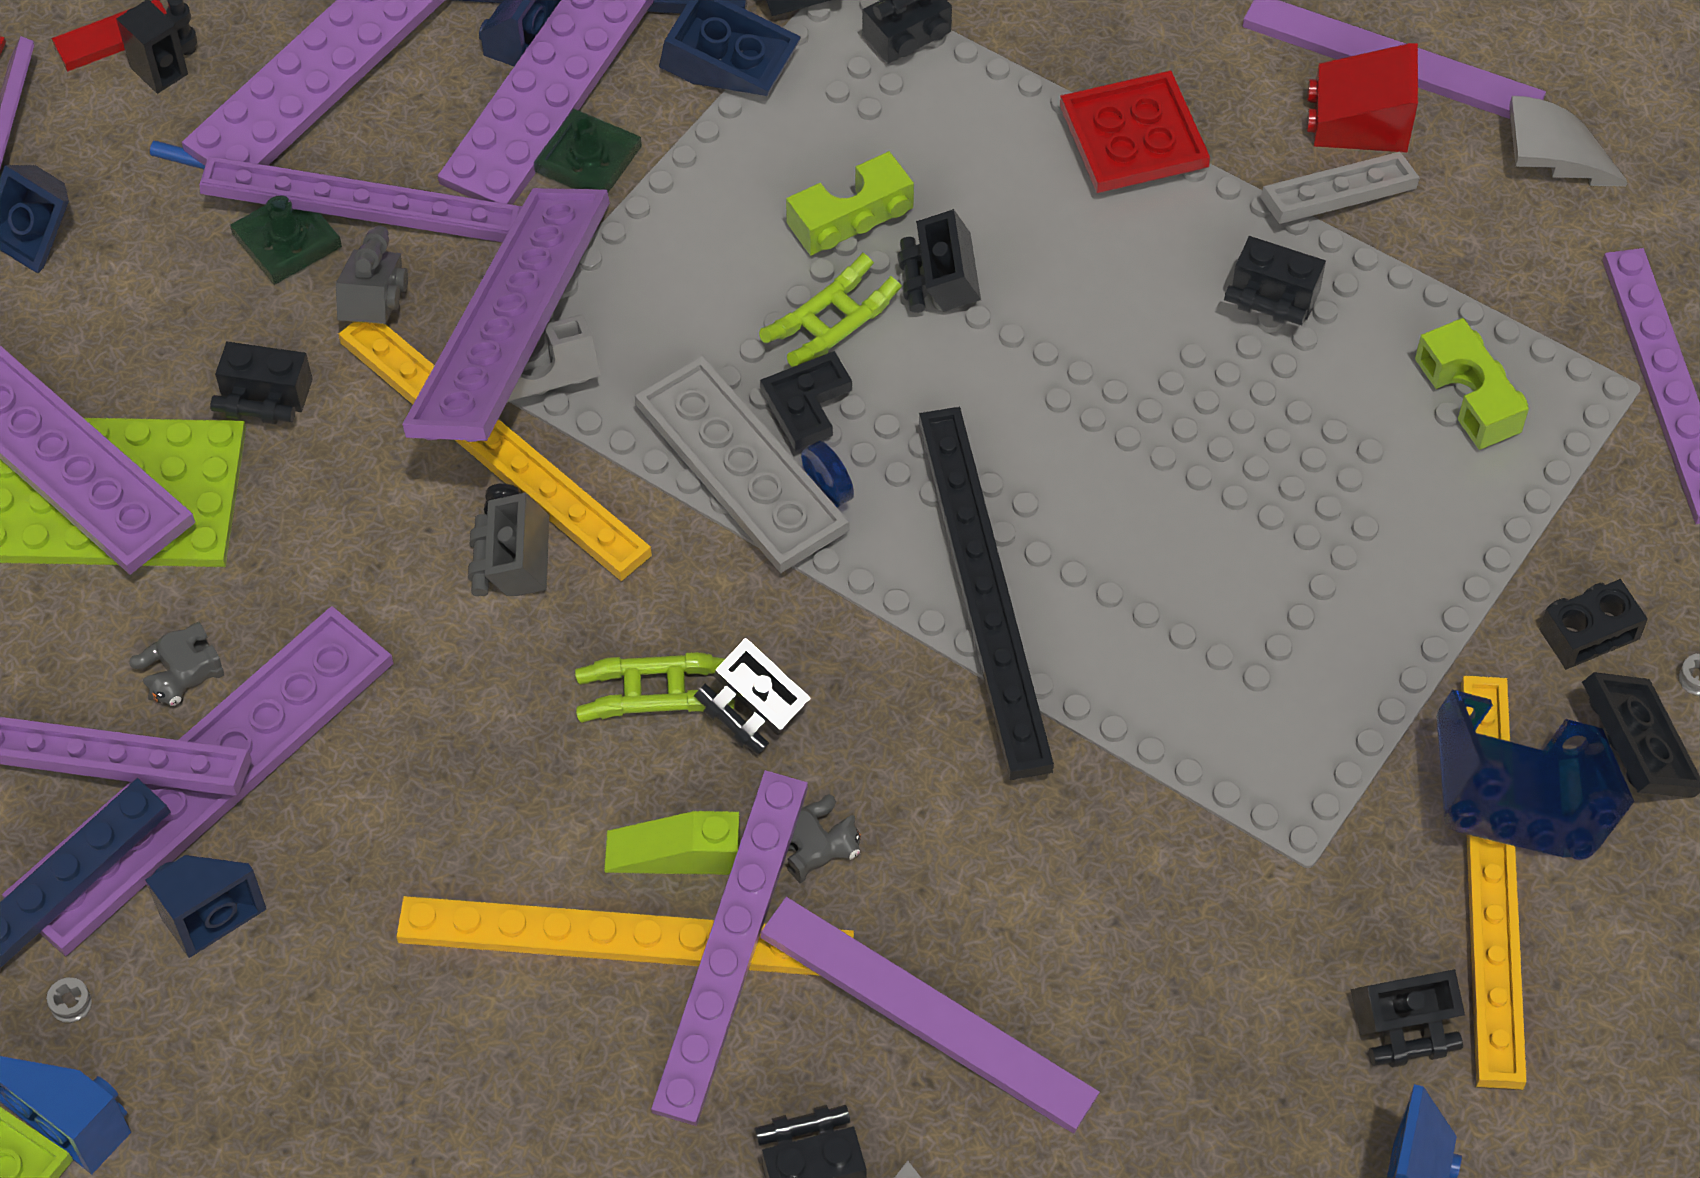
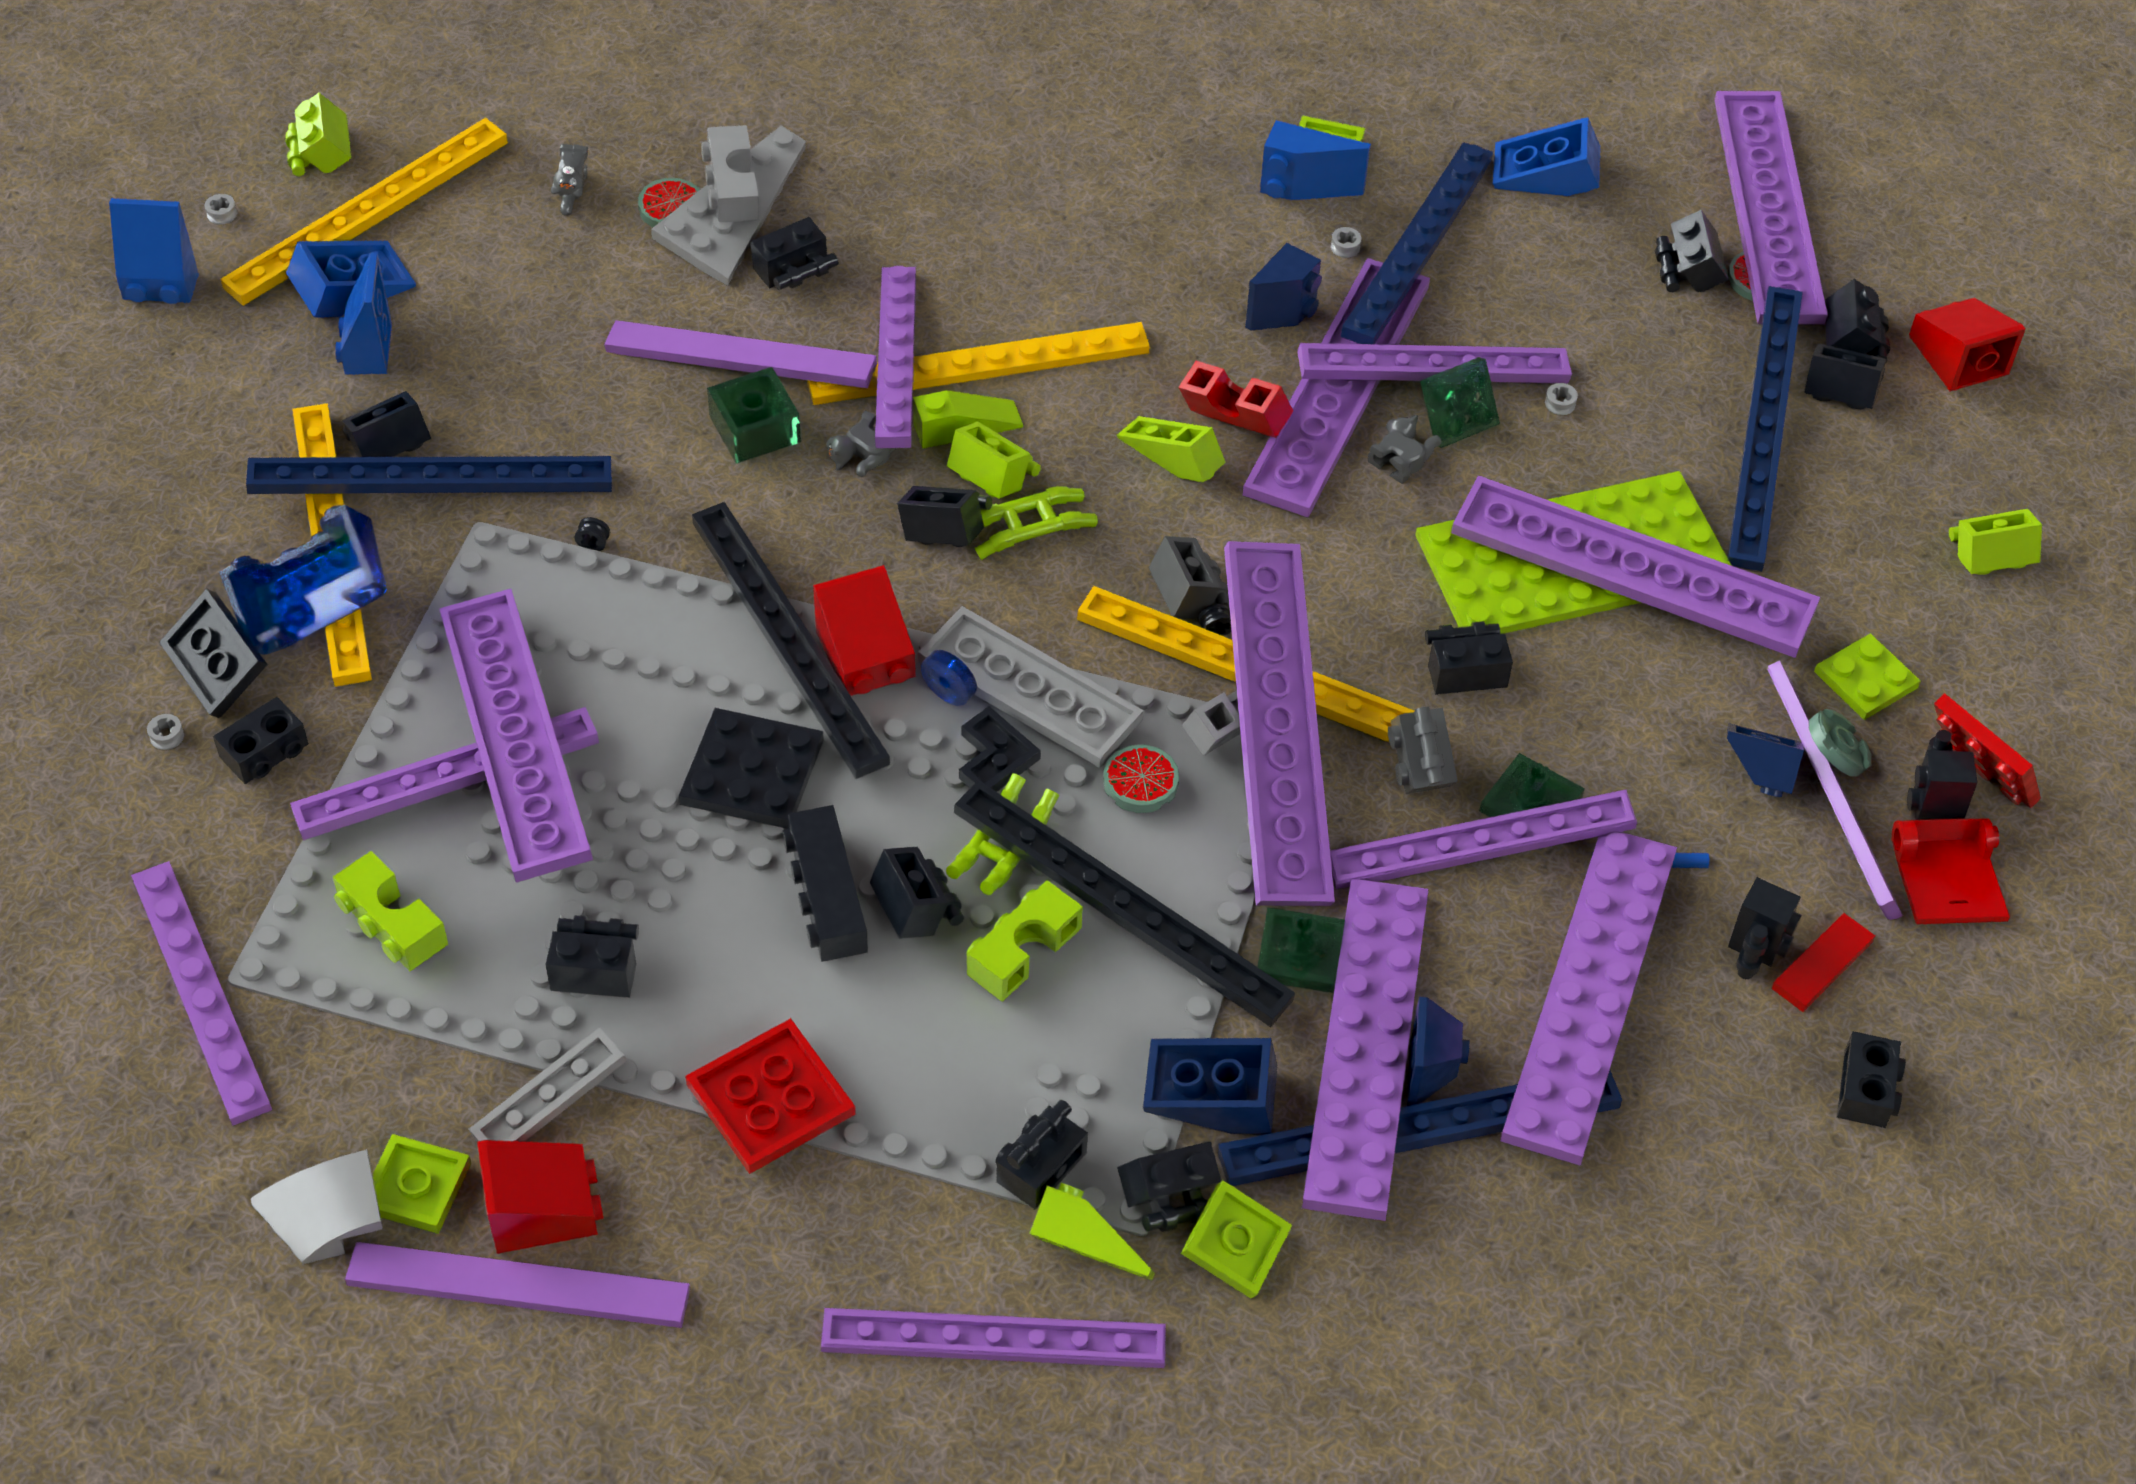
camera: 160 degrees right, 5 degrees down
(83, 688) = (1450, 404): none -> clear green plate
(327, 726) = (1258, 407): none -> red arch
(448, 737) = (1178, 447): none -> lime slope
(664, 340) = (1141, 778): none -> tile
(674, 758) = (990, 460): none -> lime brick
(747, 215) = (1125, 903): none -> black plate
(902, 552) = (863, 631): none -> red slope
(938, 900) = (754, 415): none -> clear green brick
(1024, 305) = (826, 884): none -> black brick
(1064, 456) = (751, 767): none -> black plate
(1175, 798) = (592, 534): none -> black bush
(1316, 529) = (515, 736): none -> medium lavender plate
(1363, 918) = (428, 474): none -> dark blue plate
(1393, 521) = (419, 781): none -> medium lavender plate
(1471, 153) = (418, 1182): none -> lime plate

